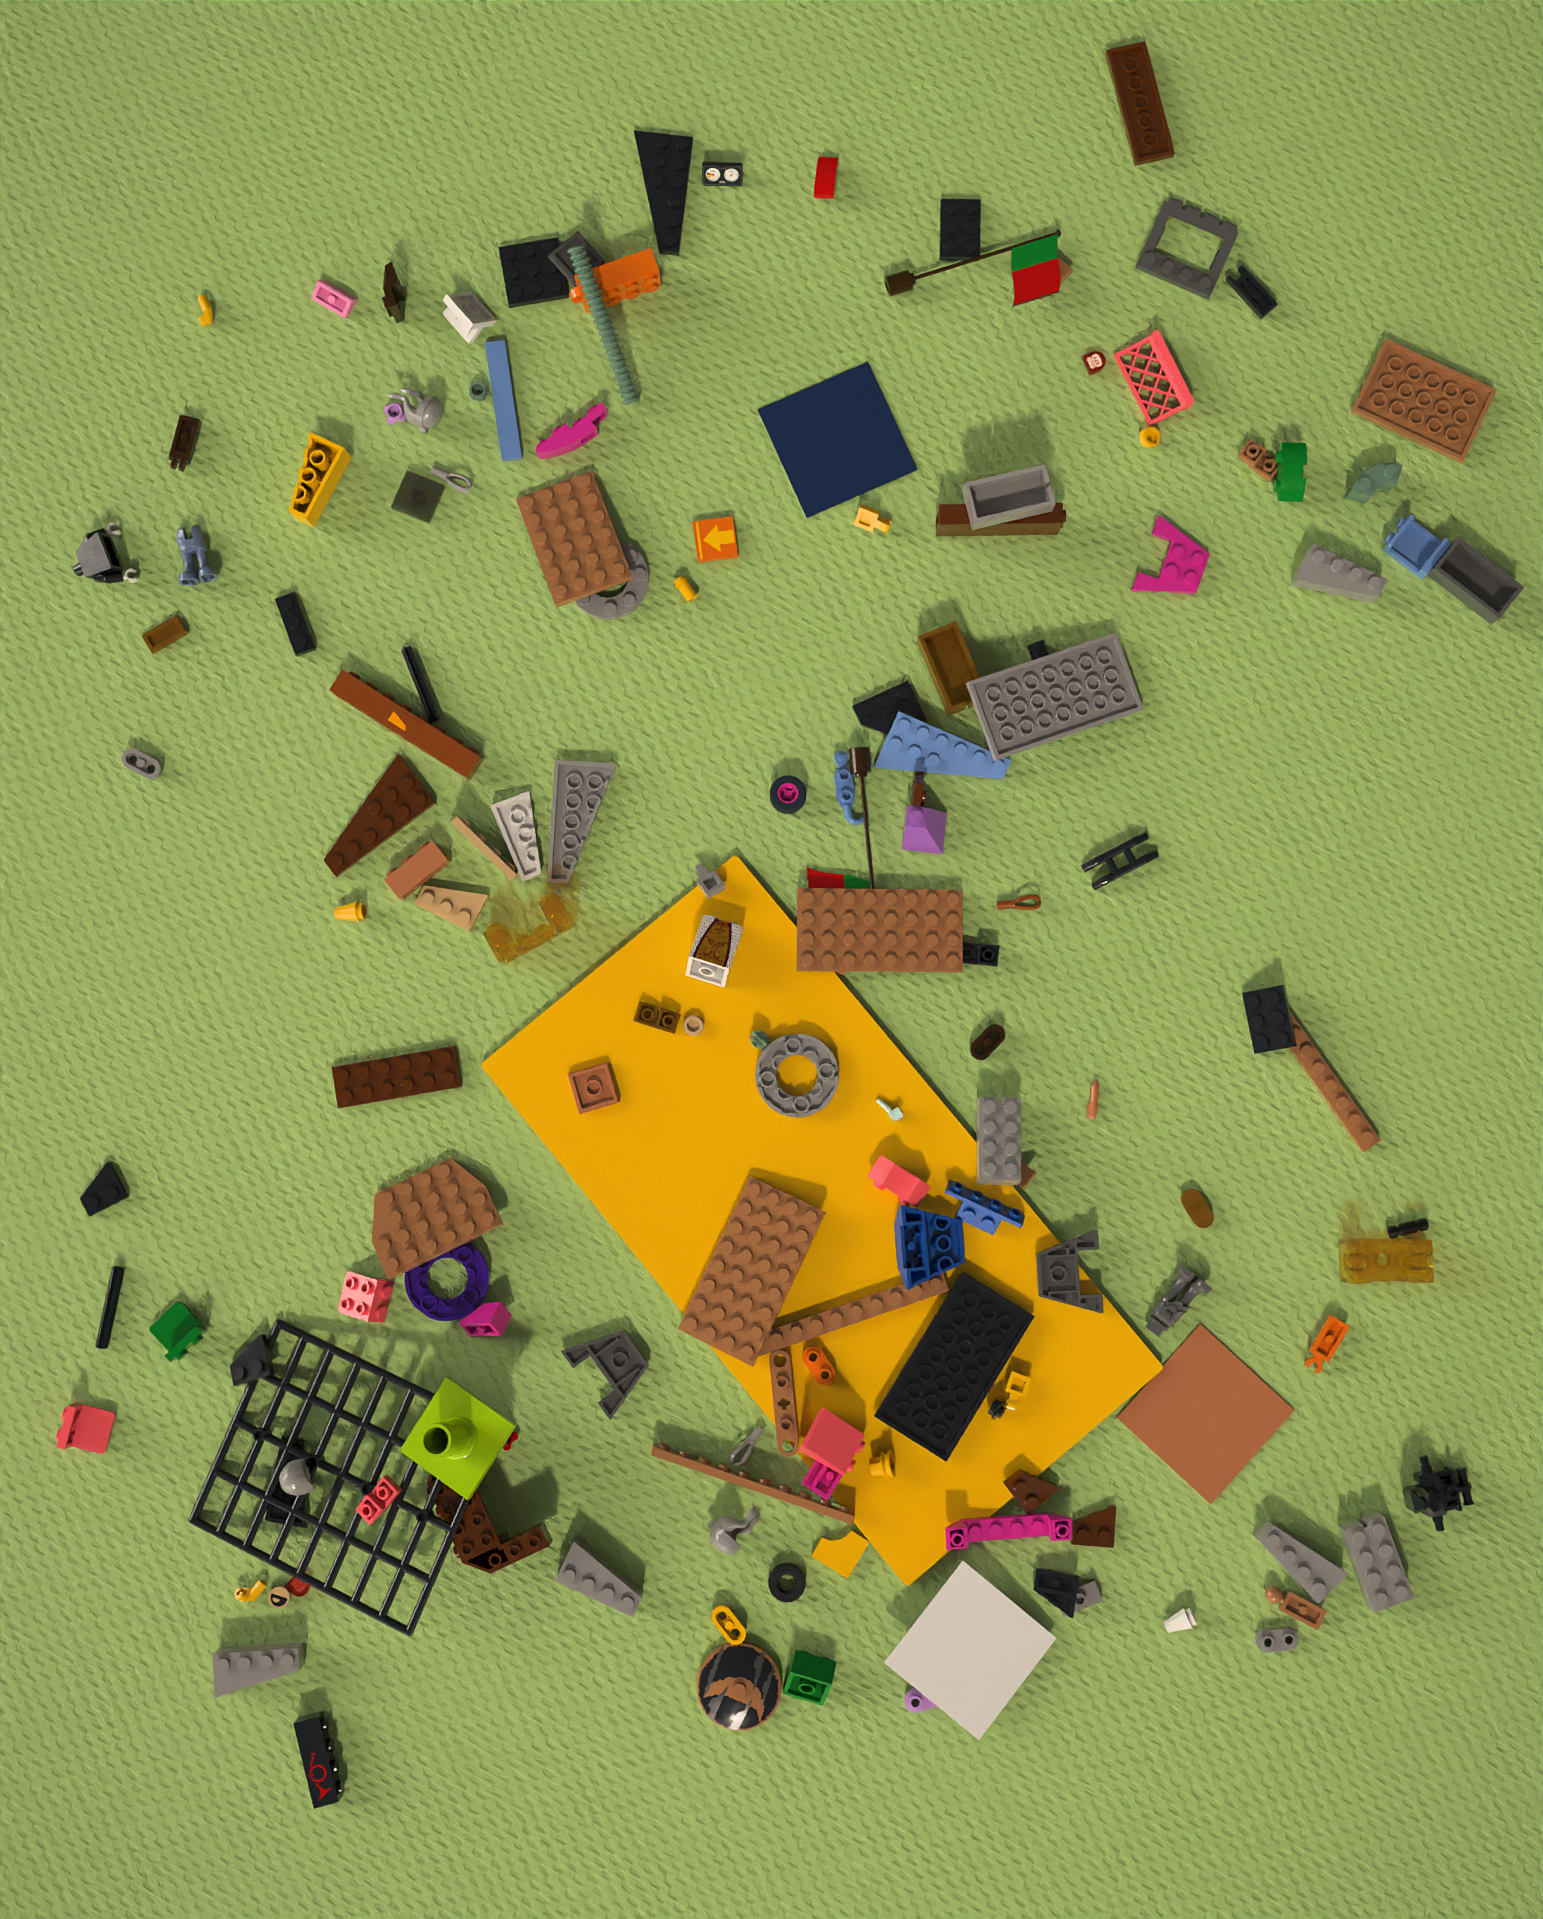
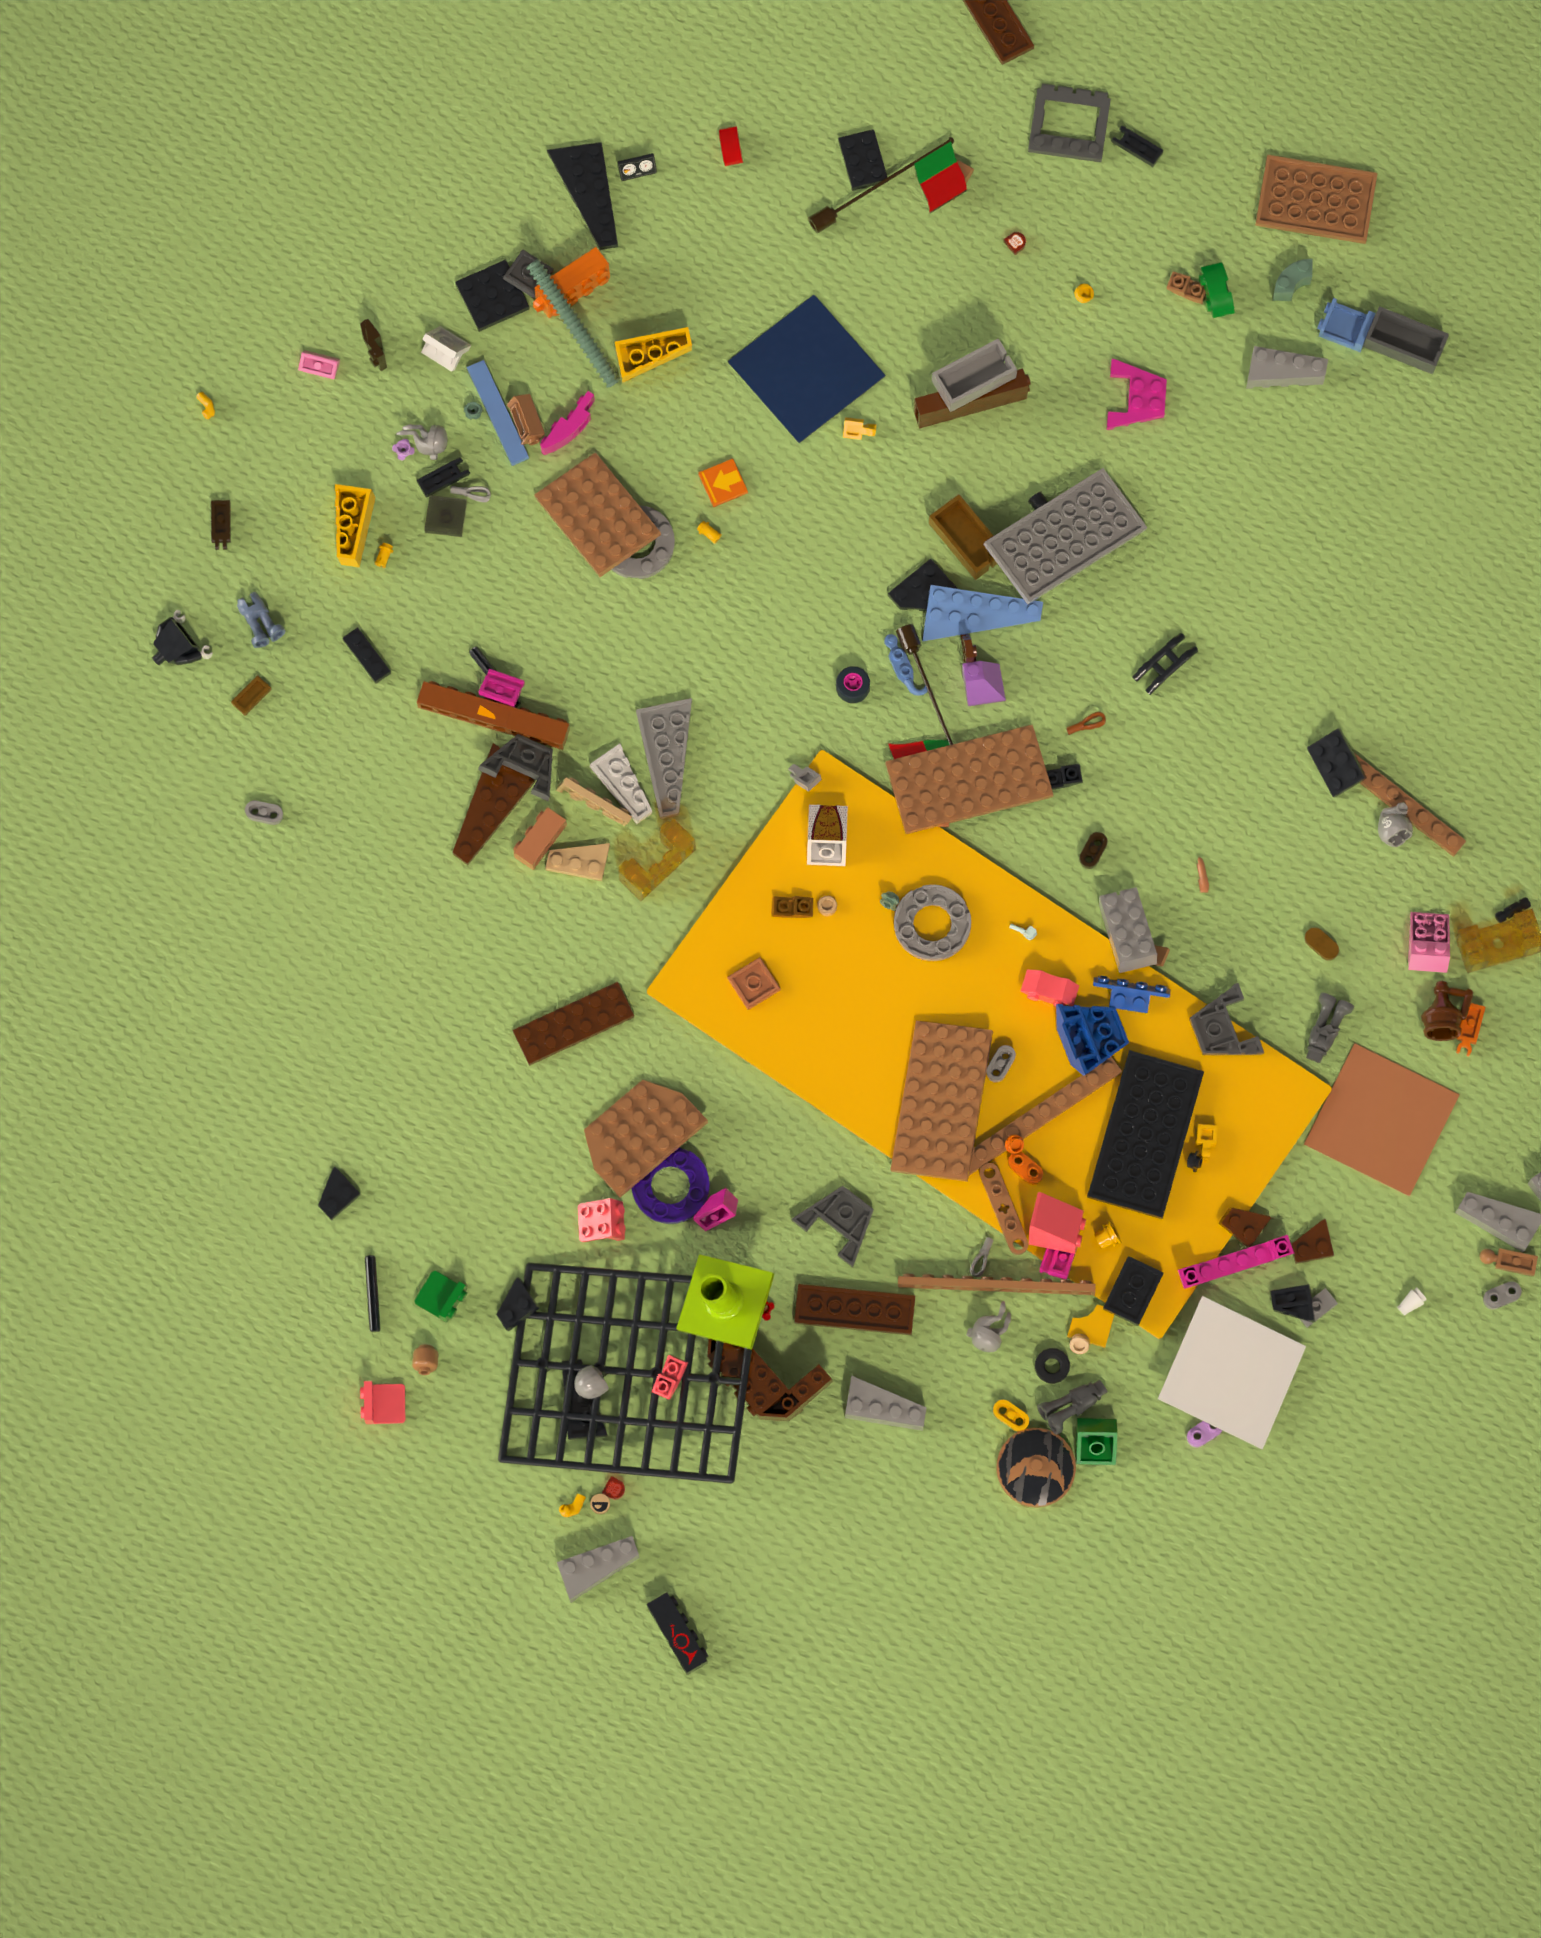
camera: 15 degrees left, 10 degrees down
(142, 1394) = (425, 1359): none -> medium nougat head
(342, 521) = (383, 555): none -> yellow pin
(353, 911) = (491, 890): yellow cone -> none
(421, 698) = (501, 687): none -> dark pink plate
(425, 454) = (442, 477): none -> black hinge
(426, 781) = (527, 758): none -> dark grey wing
(529, 415) = (526, 419): none -> medium nougat window
(599, 1465) = (854, 1309): none -> reddish brown plate
(678, 377) = (650, 351): none -> yellow wedge
(806, 1627) = (1081, 1398): none -> dark grey piece
(813, 1340) = (1014, 1144): none -> orange plate
(821, 1568) = (1079, 1343): none -> tan tile
(826, 1248) = (1001, 1064): none -> light grey plate
(893, 1530) = (1133, 1291): none -> black plate
(1171, 373) = (1084, 231): coral fence -> none
(1301, 1327) = (1442, 1018): none -> reddish brown piece
(1310, 1103) = (1394, 826): none -> light grey piece
(1310, 1239) = (1429, 942): none -> bright pink slope

